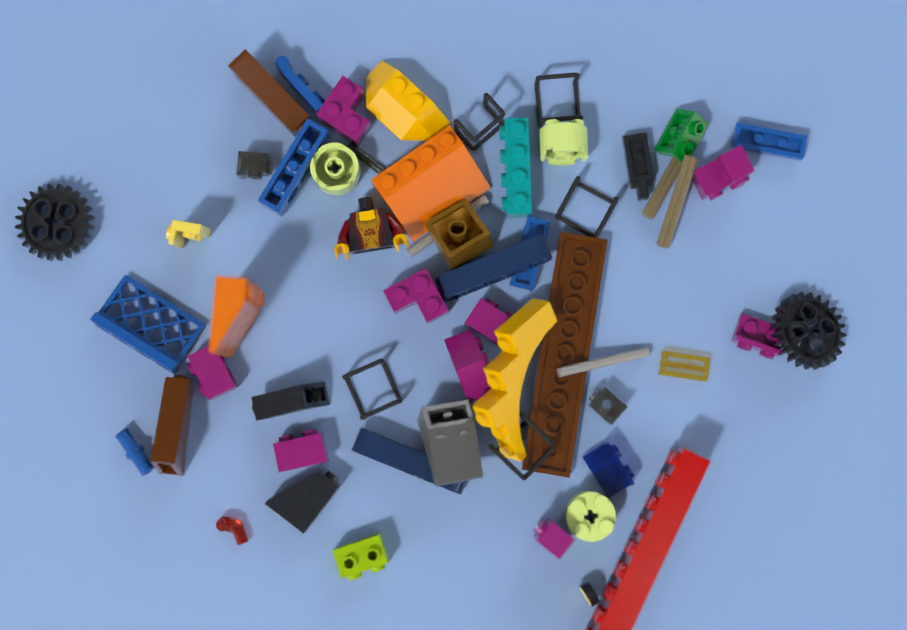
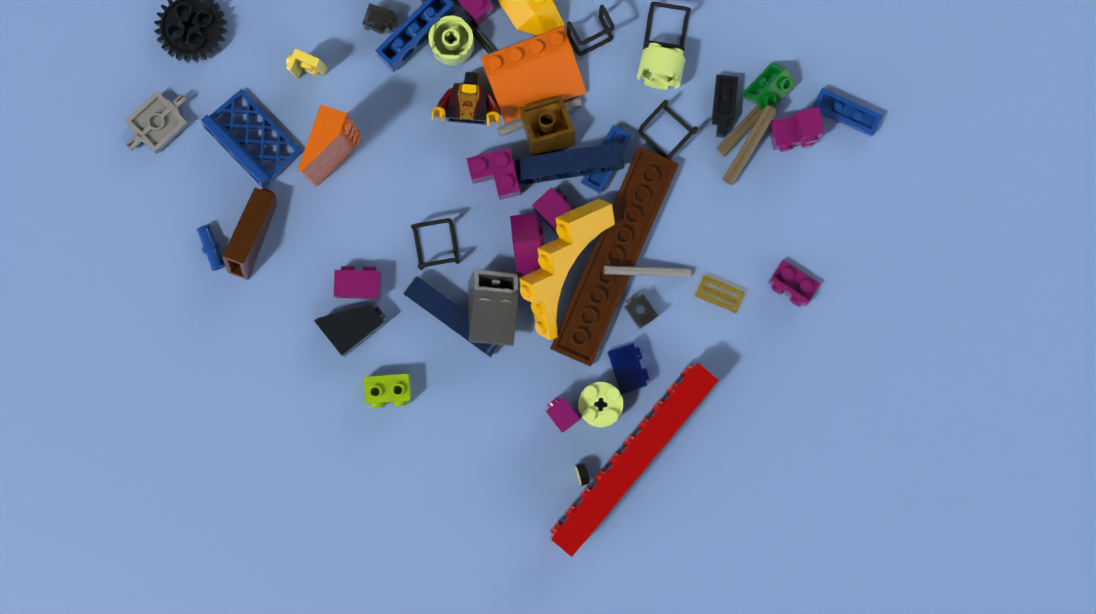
camera: 15 degrees right, 0 degrees up
(44, 332) = (156, 122): none -> light grey plate
(212, 373) = (297, 195): magenta brick -> none
(233, 526) = (281, 335): clear red arm -> none
(290, 400) = (359, 236): black slope -> none
(517, 167) = (614, 79): teal brick -> none
(526, 420) = (543, 345): black piece -> none
(791, 317) = (825, 272): black gear -> none

